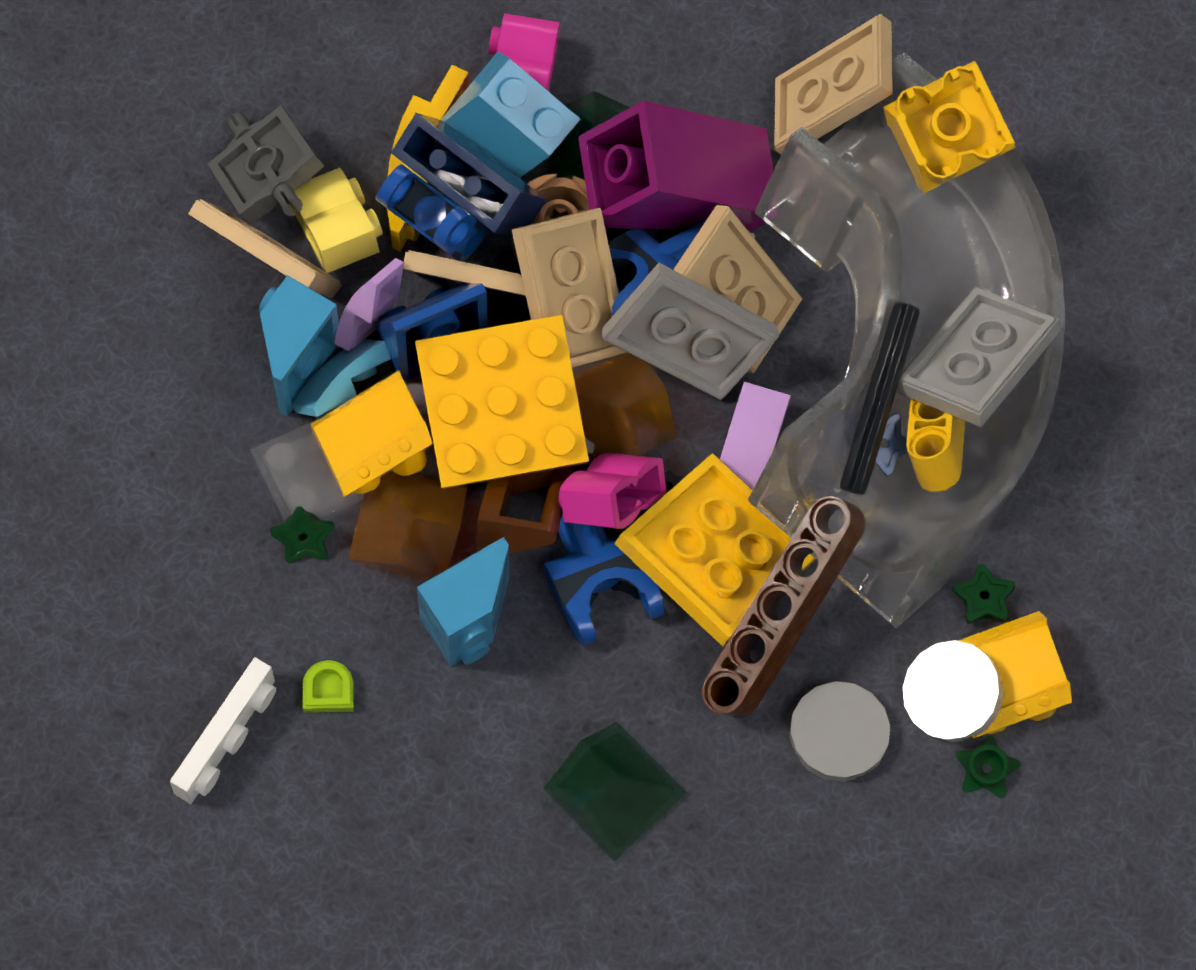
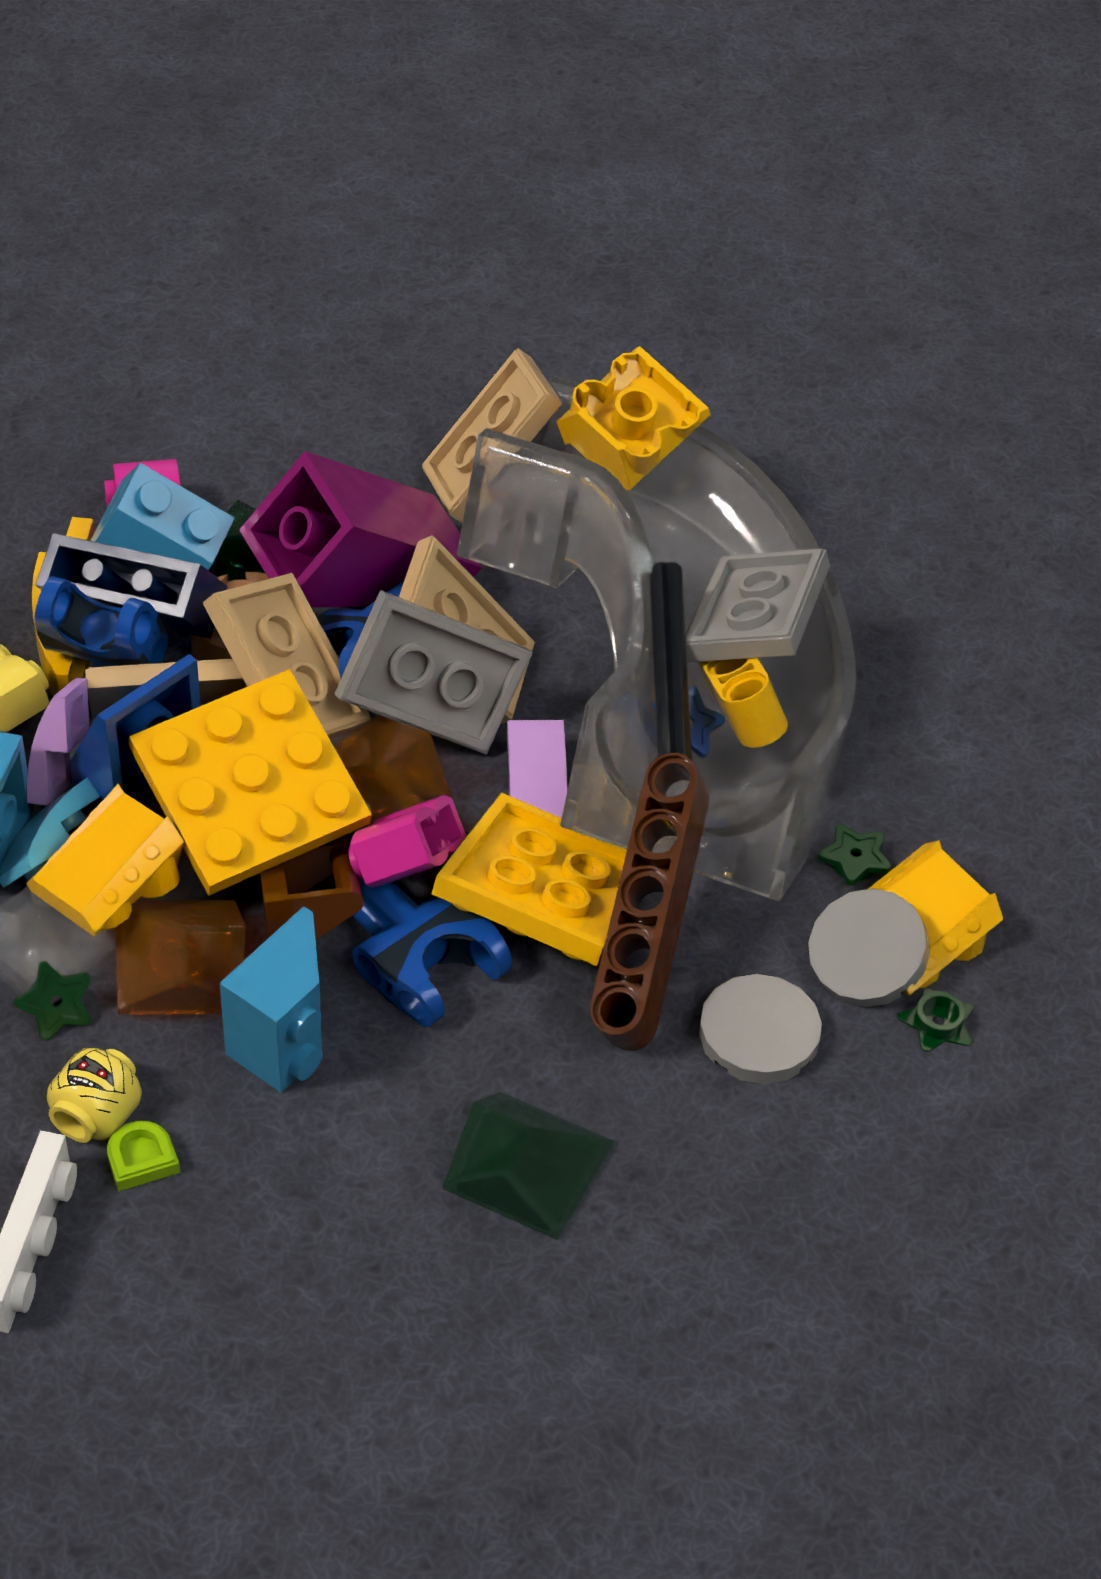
camera: 20 degrees left, 20 degrees down
(307, 628) = (93, 1094): none -> light yellow head

